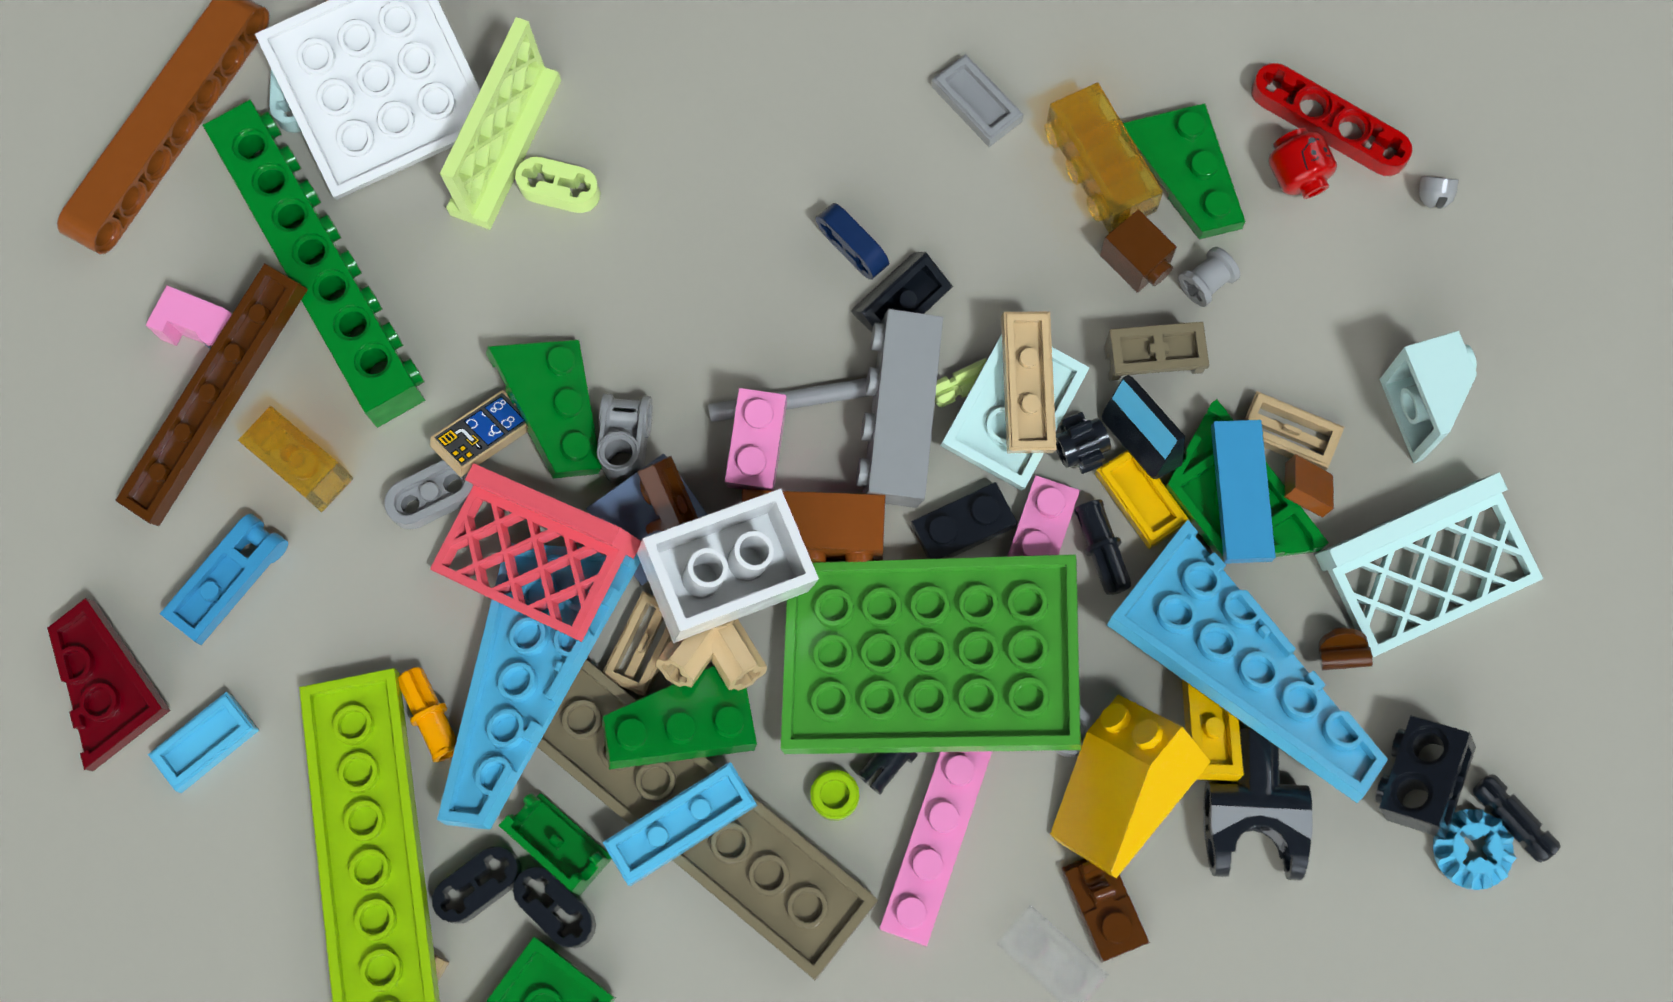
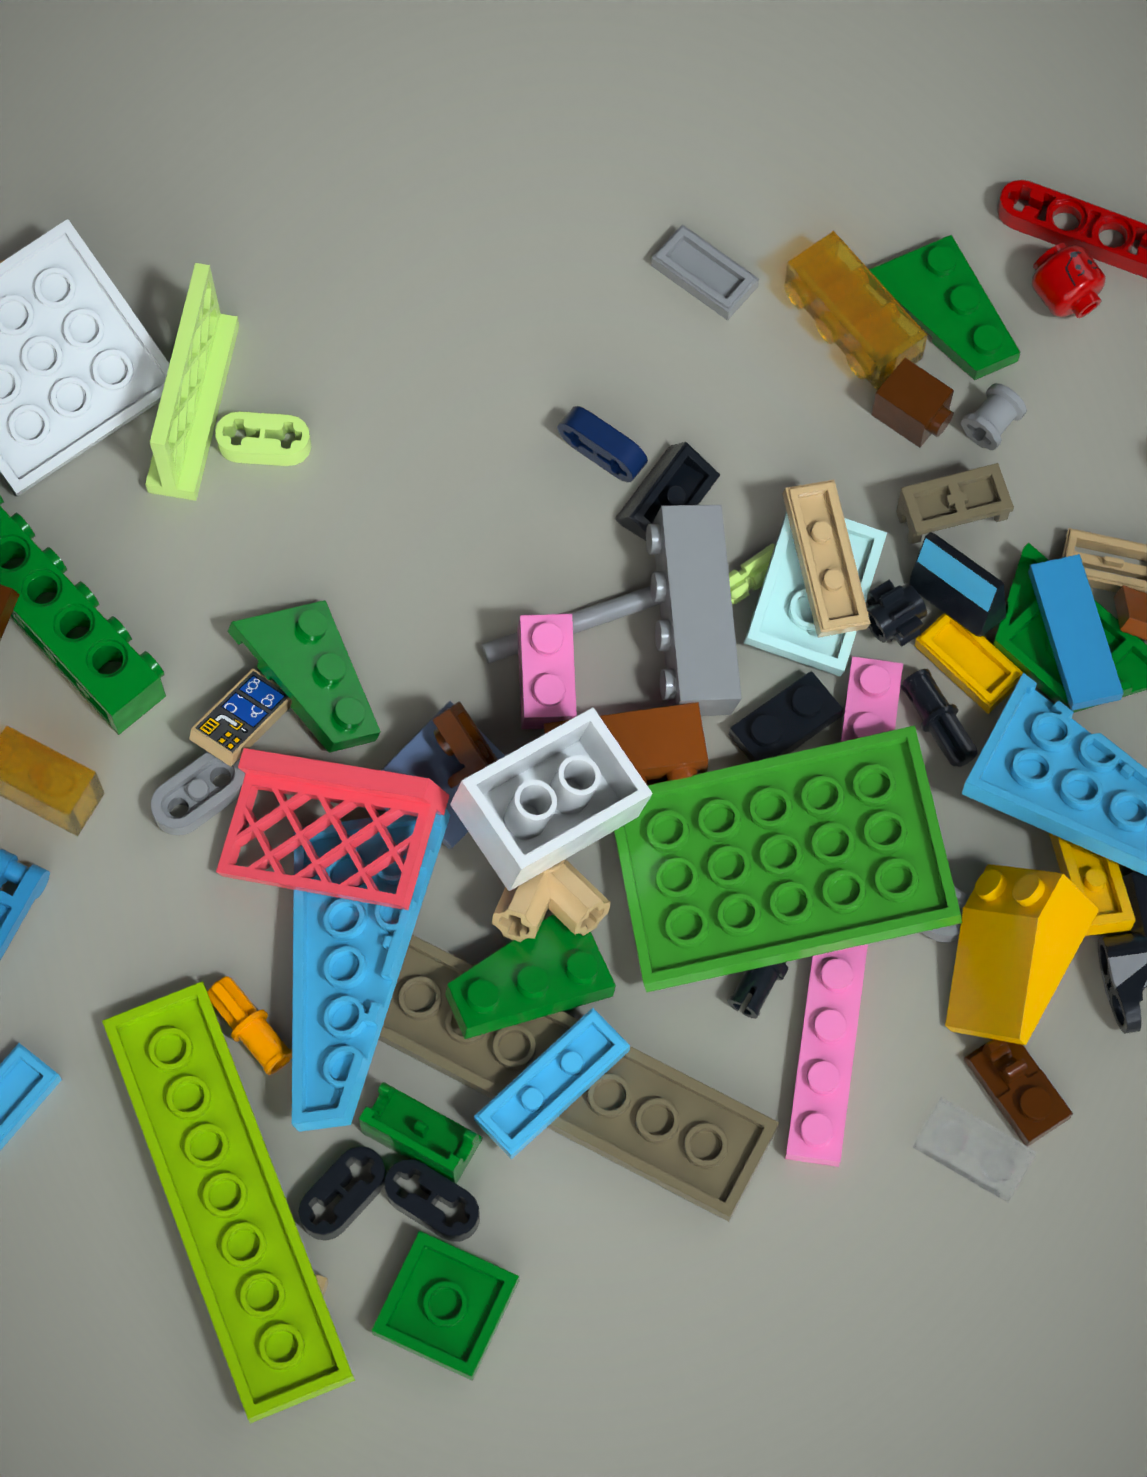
camera: 15 degrees left, 5 degrees down
(626, 429) = (397, 689): light grey piece -> none
(627, 681) = (478, 868): tan tile -> none
(835, 795) = (708, 1028): lime tile -> none

